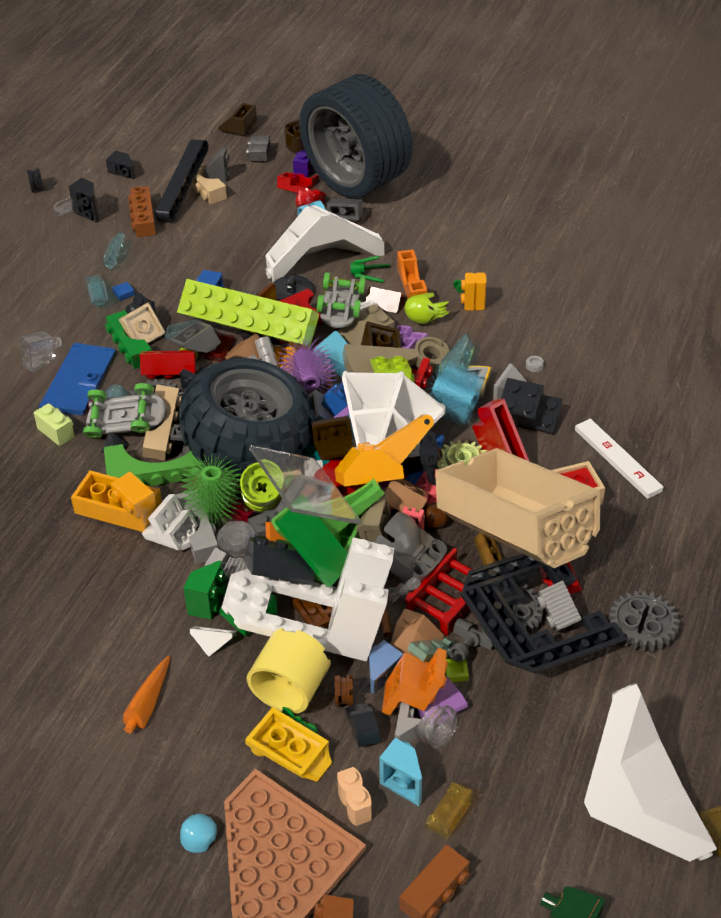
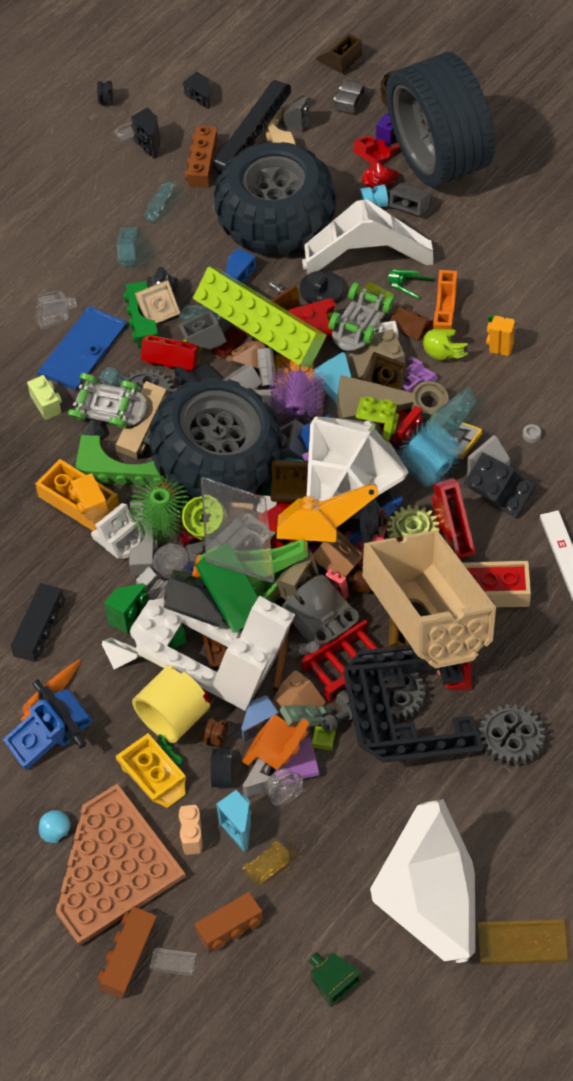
camera: 20 degrees right, 10 degrees up
(112, 629) = (37, 622): none -> black brick
(123, 291) = (155, 253): blue tile -> none
(162, 719) = (52, 720): none -> blue piece
(225, 223) = (274, 198): none -> black wheel
(559, 606) = (435, 702): light grey brick -> none

